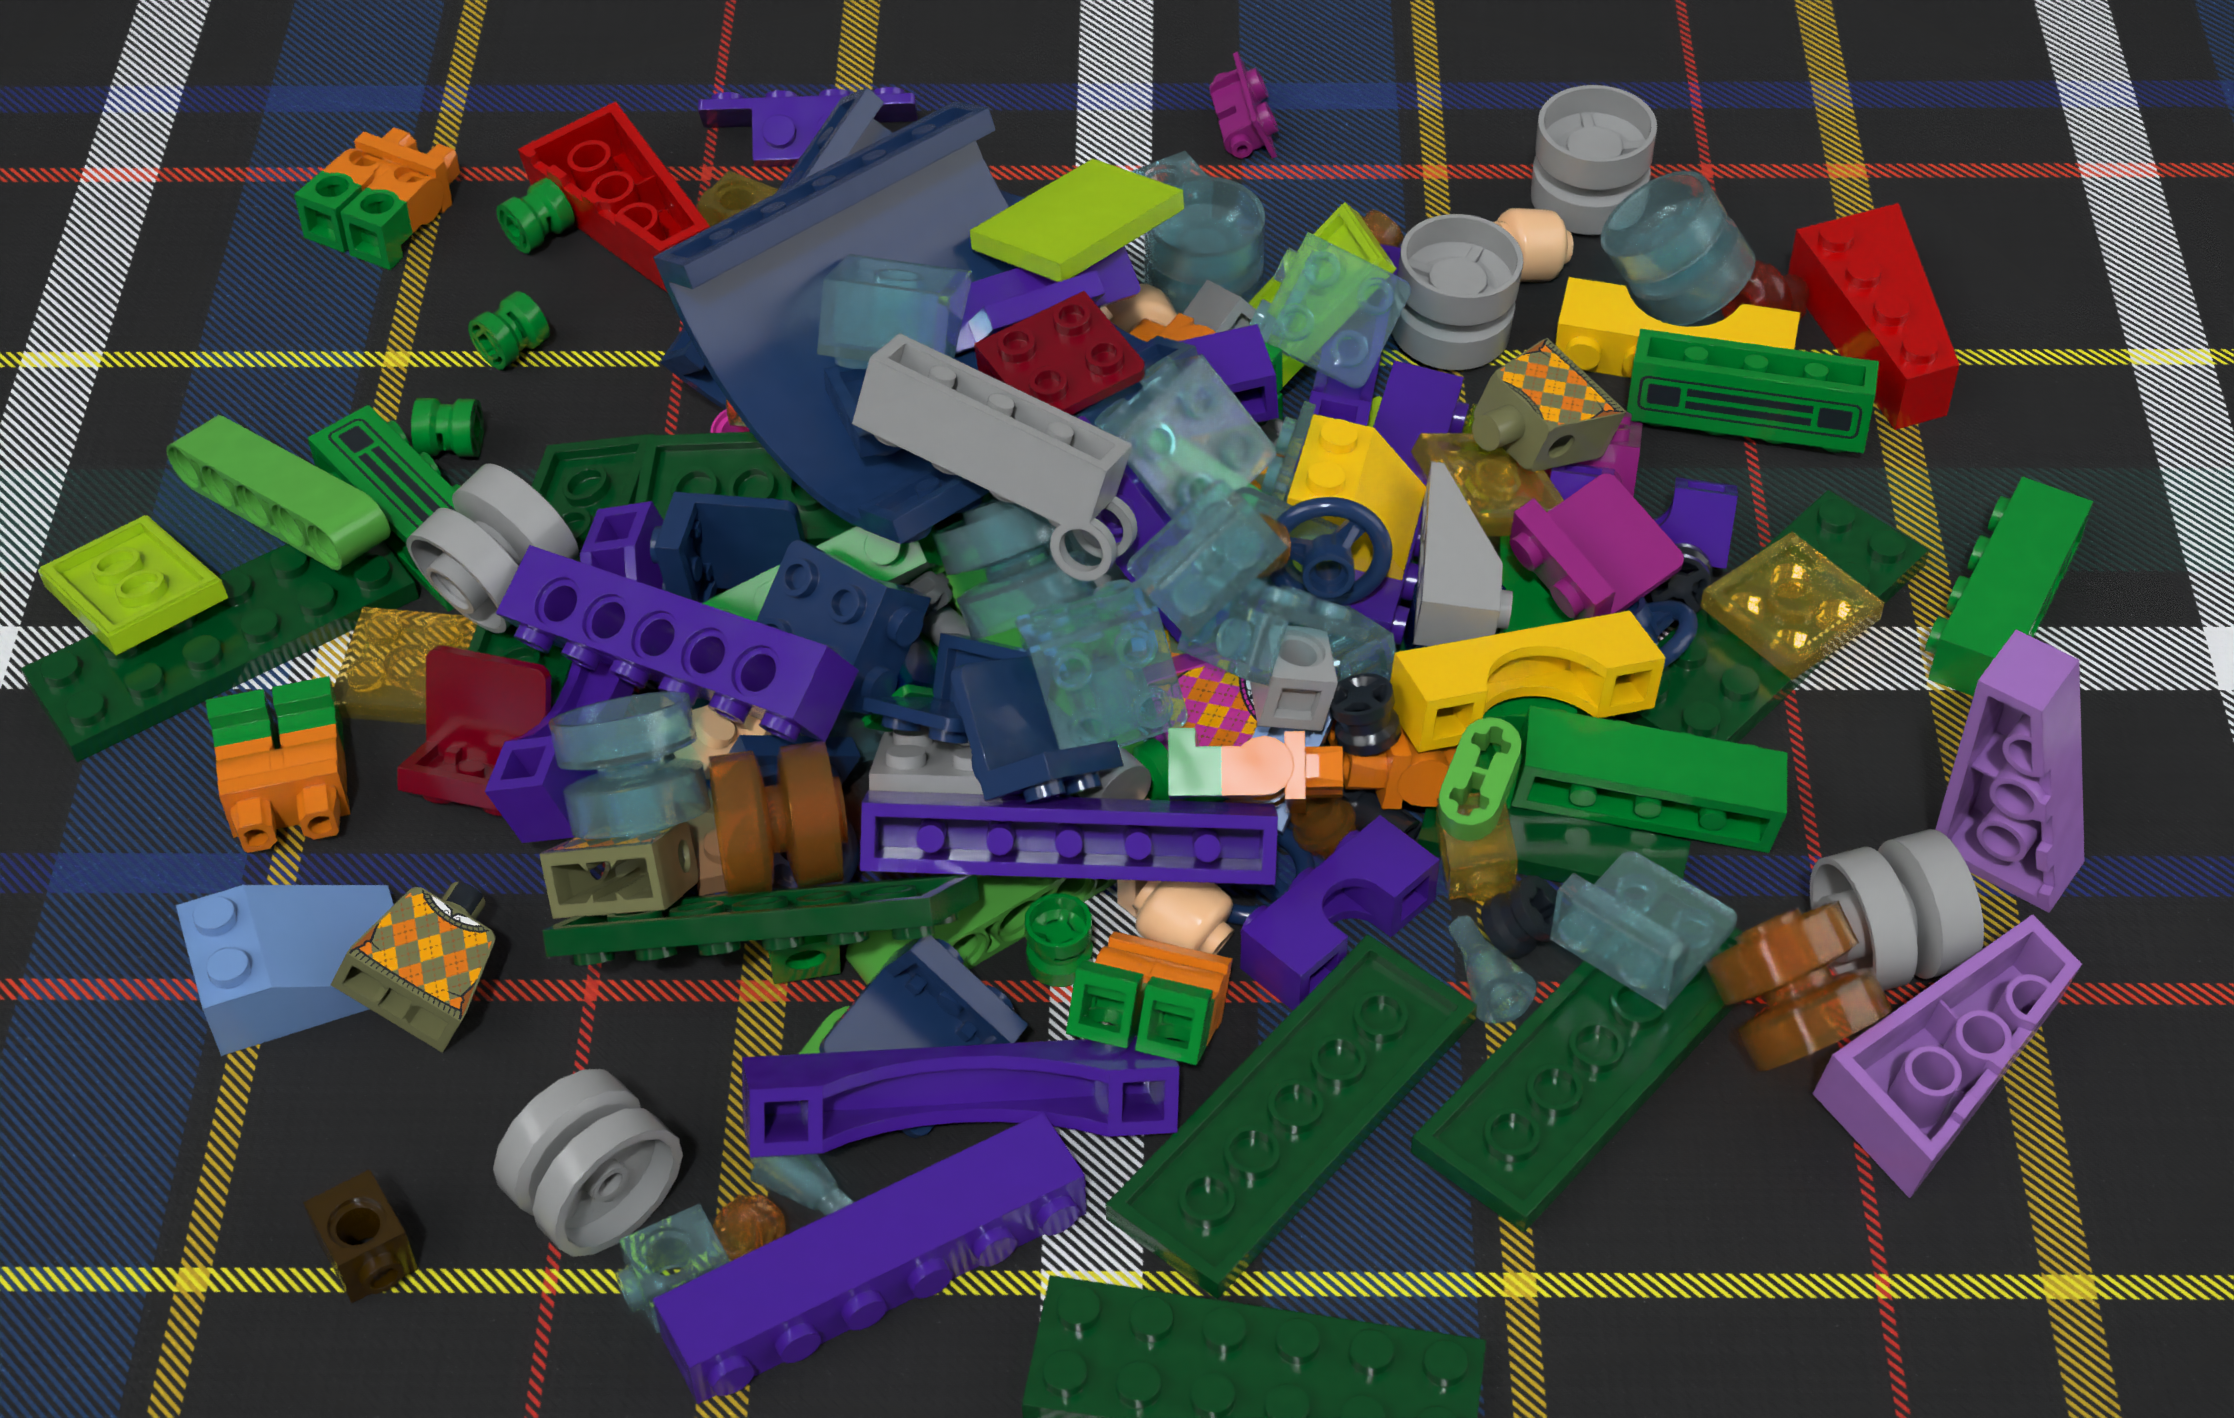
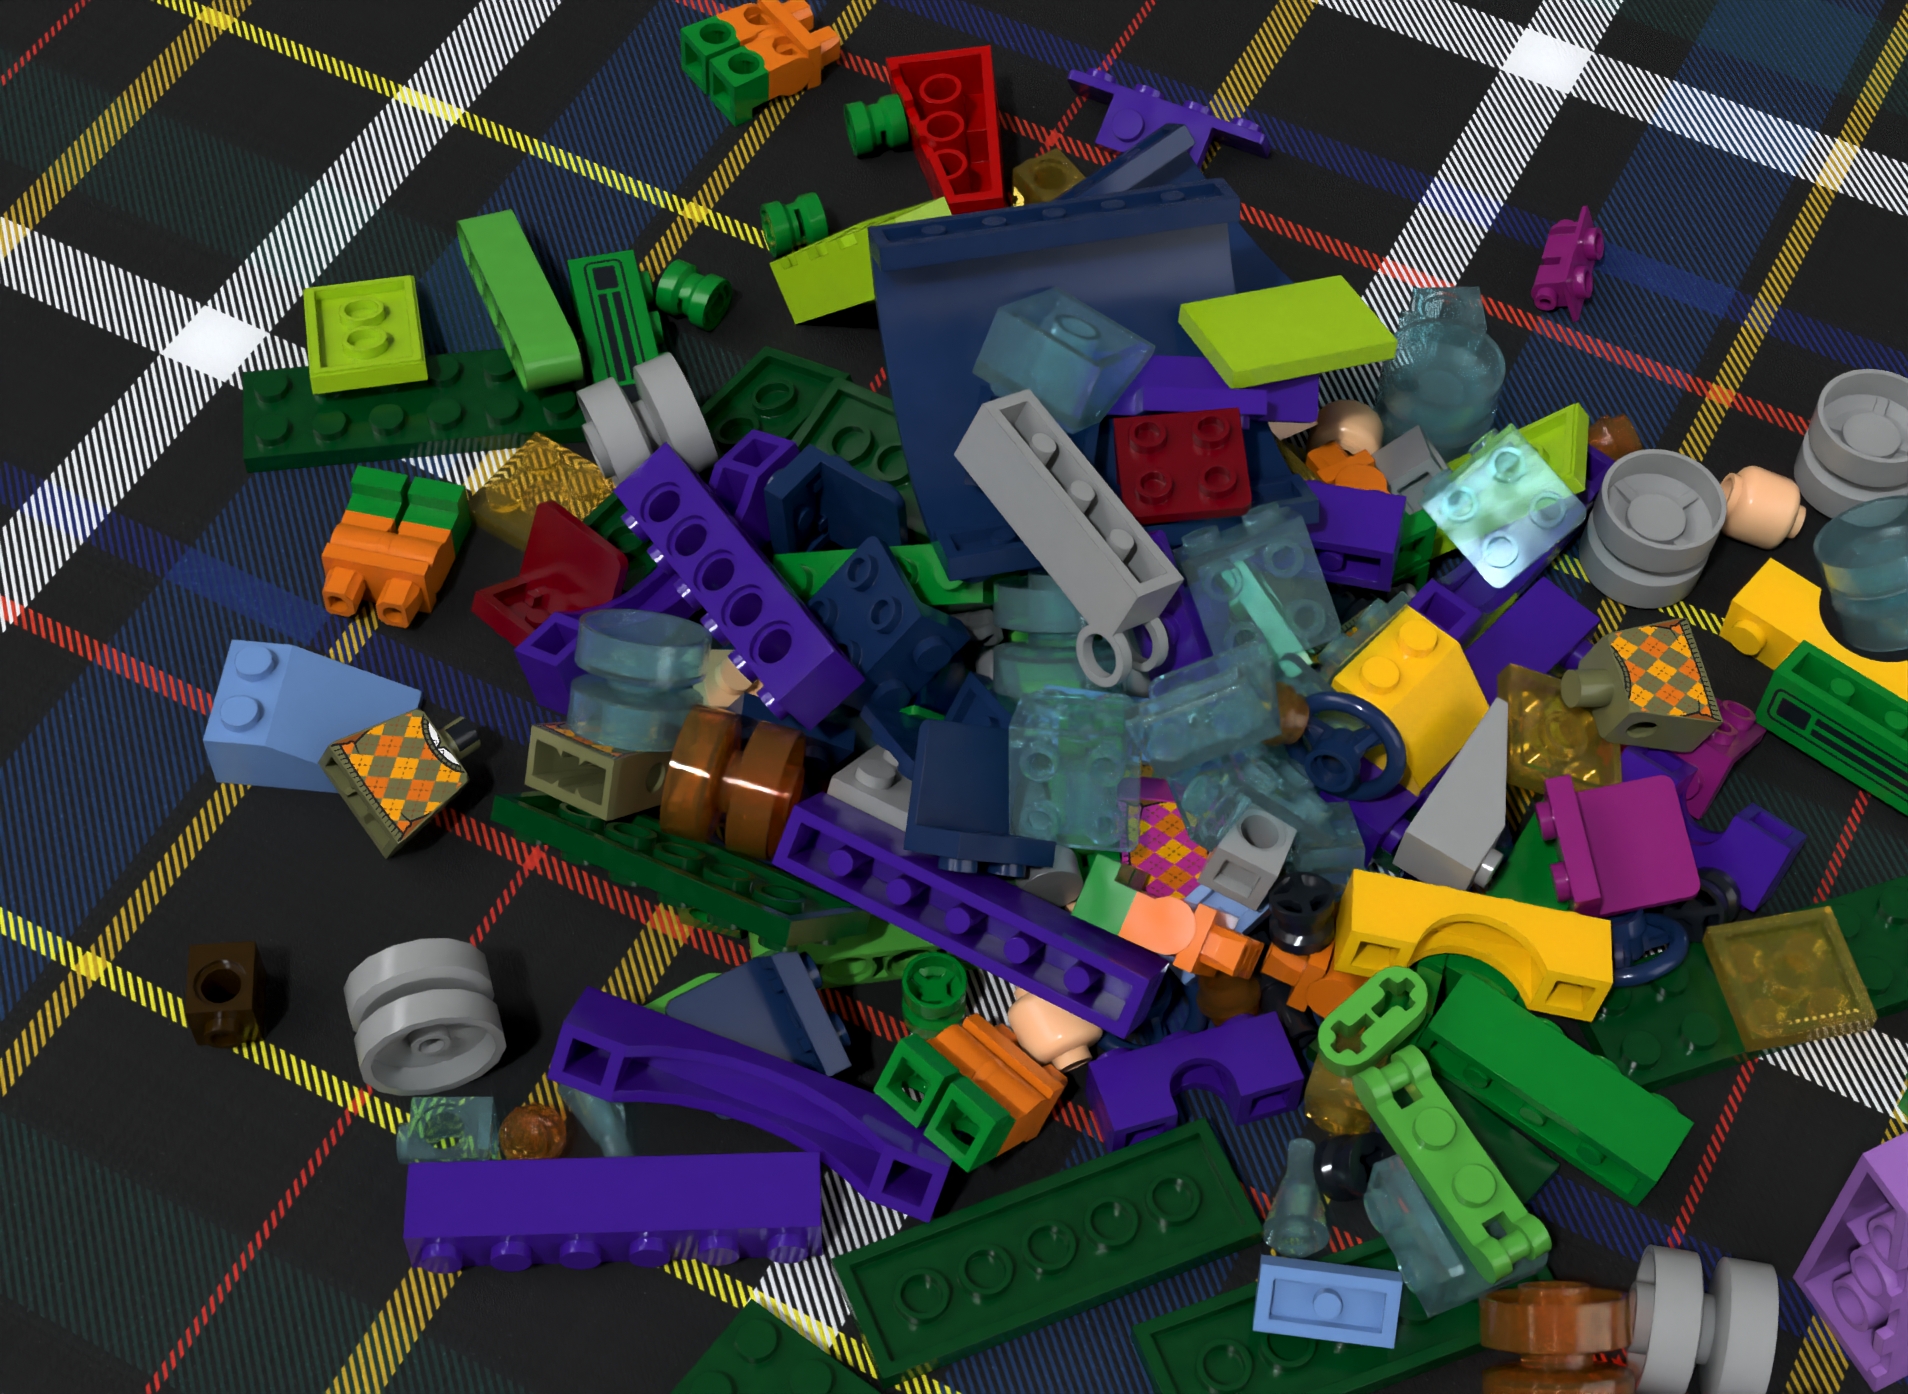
camera: 25 degrees right, 5 degrees up
(604, 334) = (838, 268): none -> lime wedge
(1575, 1032) = (1327, 1301): none -> medium blue plate
(1613, 865) = (1450, 1165): none -> bright green plate

